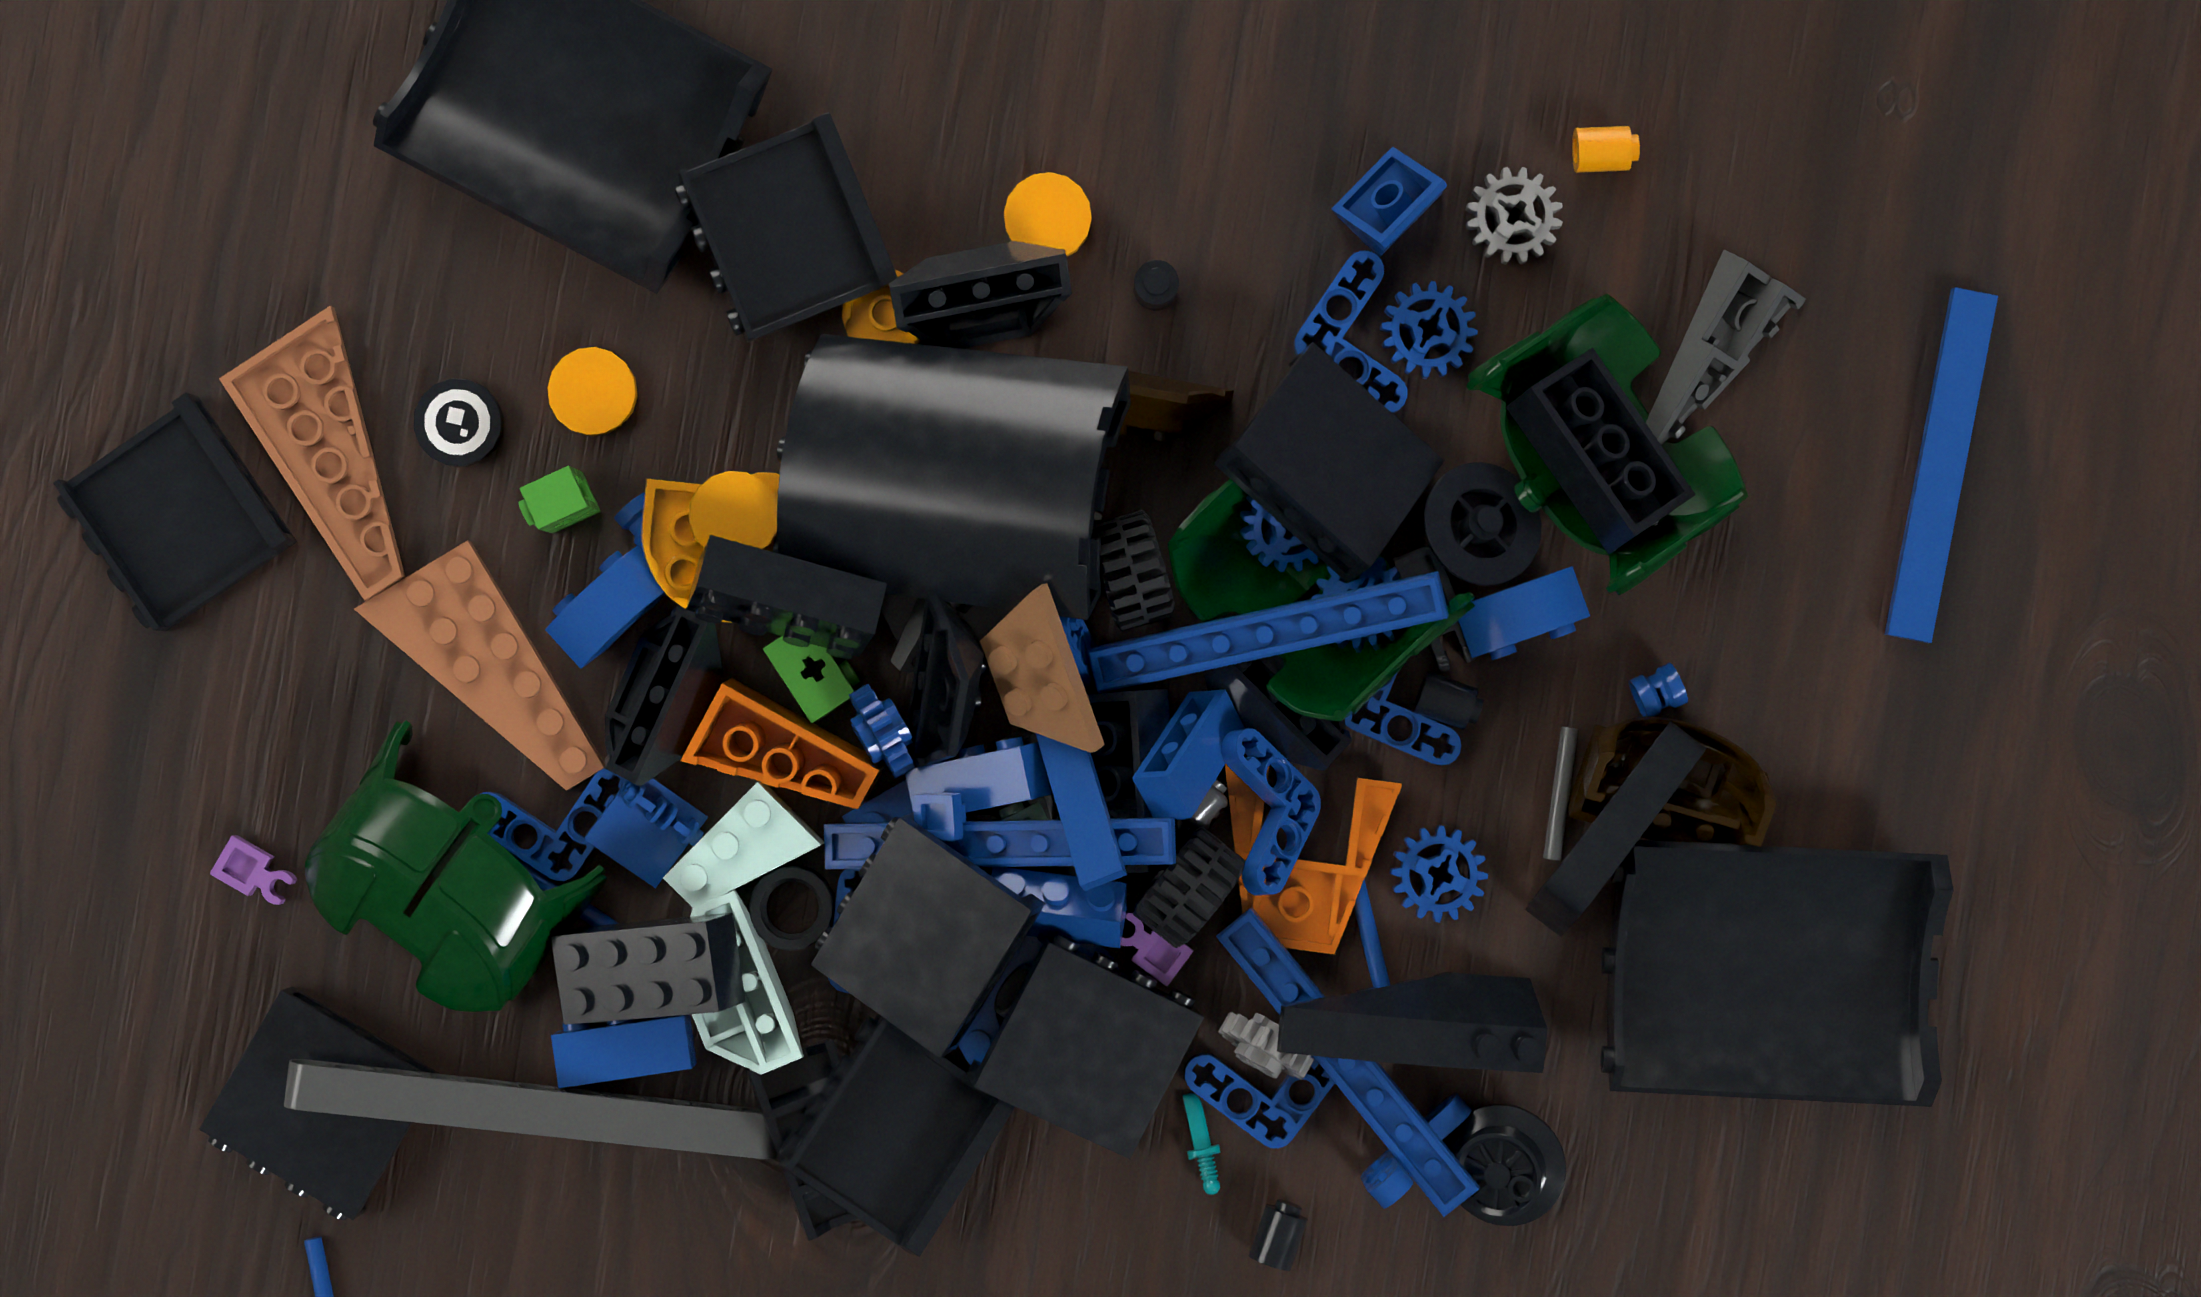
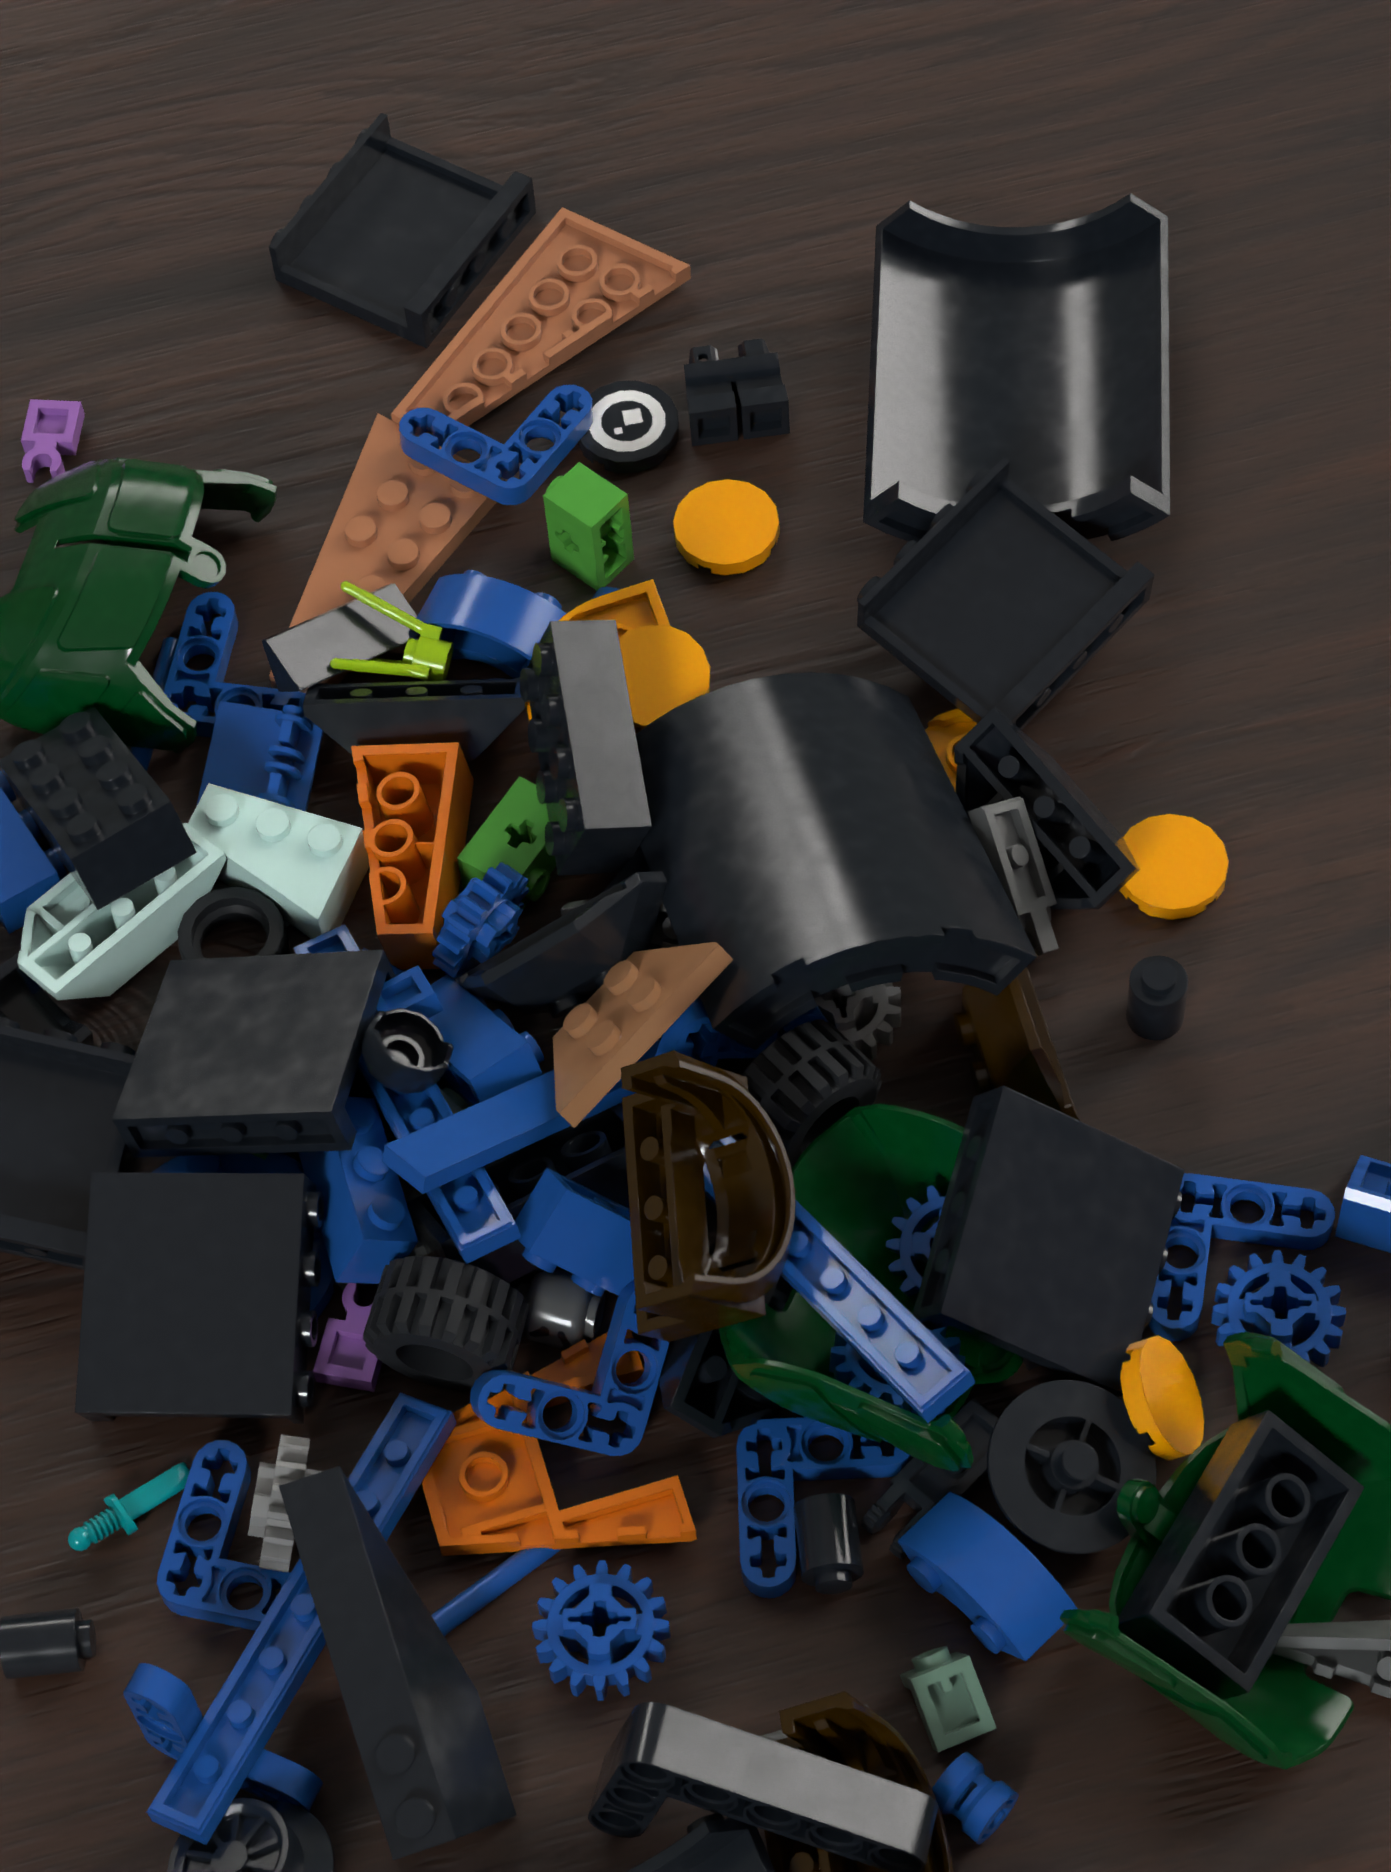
camera: 70 degrees right, 30 degrees down
(455, 540) = (500, 459): none -> blue beam
(471, 309) = (748, 381): none -> black hips
(574, 727) = (350, 631): none -> slope
(614, 671) = (422, 658): none -> lime plant
(990, 834) = (405, 1051): none -> black hair
(1016, 333) = (1017, 860): none -> dark grey hinge
(1265, 728) = (668, 1136): none -> dark brown piece
(1459, 439) = (1163, 1397): none -> light orange tile
(1583, 674) = (948, 1697): none -> sand green bracket

